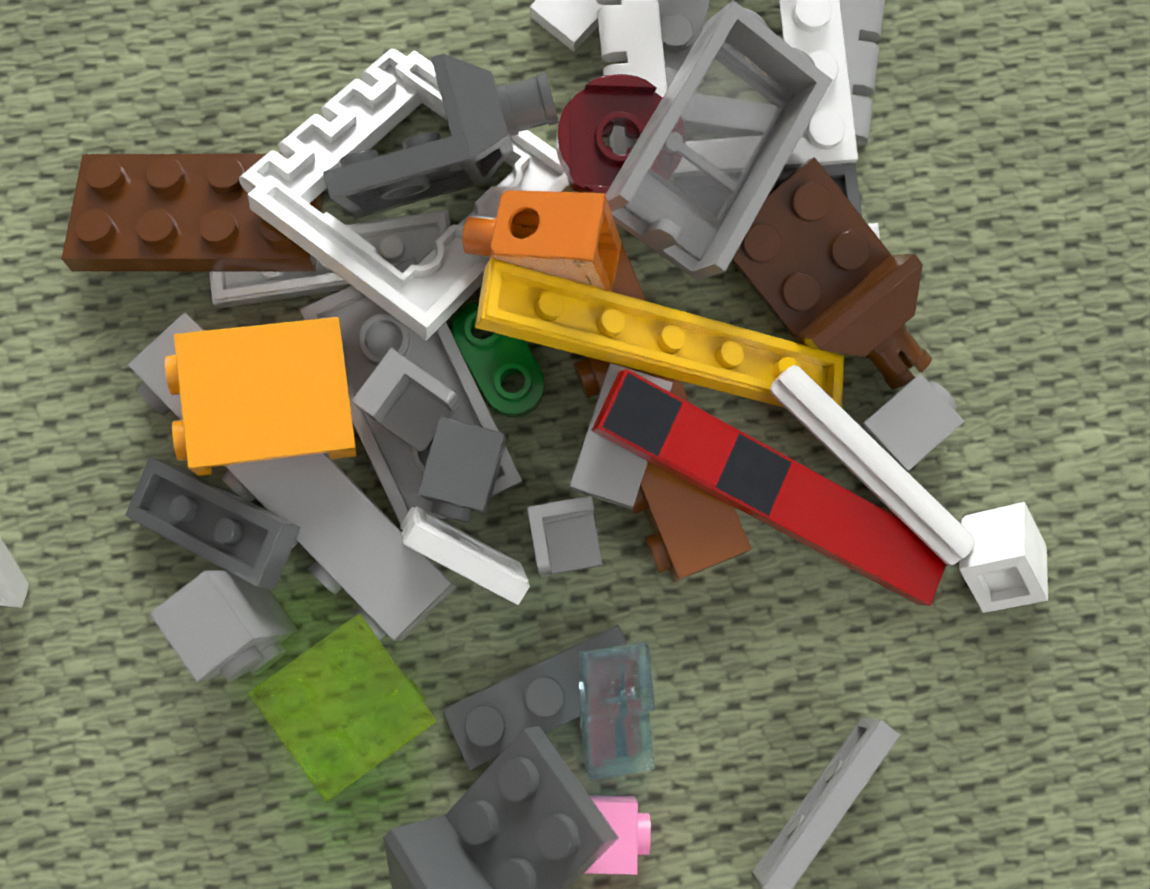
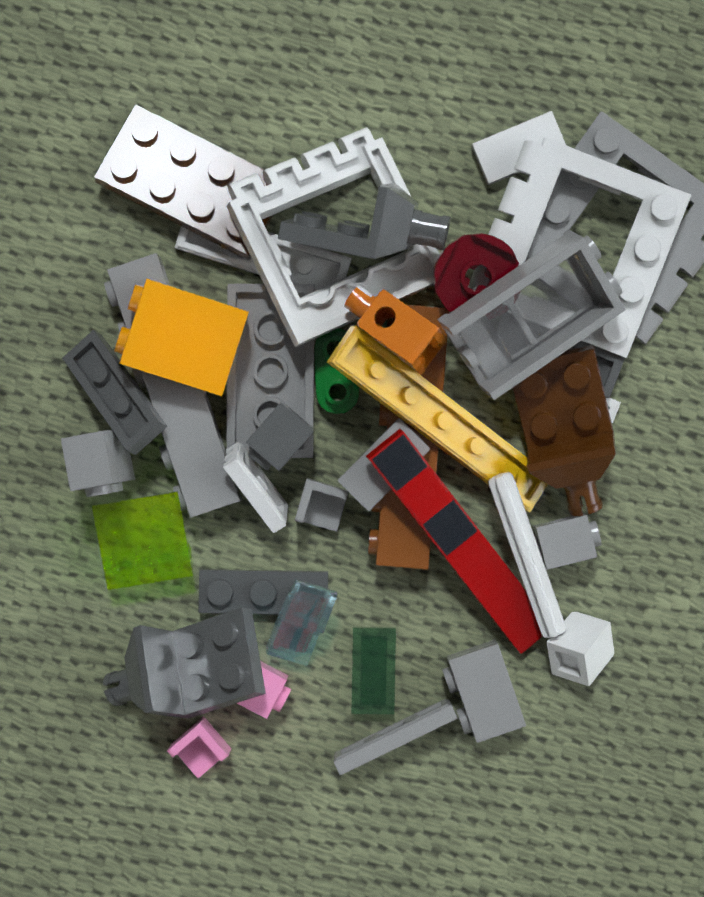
camera: 30 degrees right, 10 degrees up
(406, 400) = (266, 378): light grey panel -> none
(747, 729) = (373, 670): none -> clear green tile
(913, 681) = (484, 691): none -> light grey brick

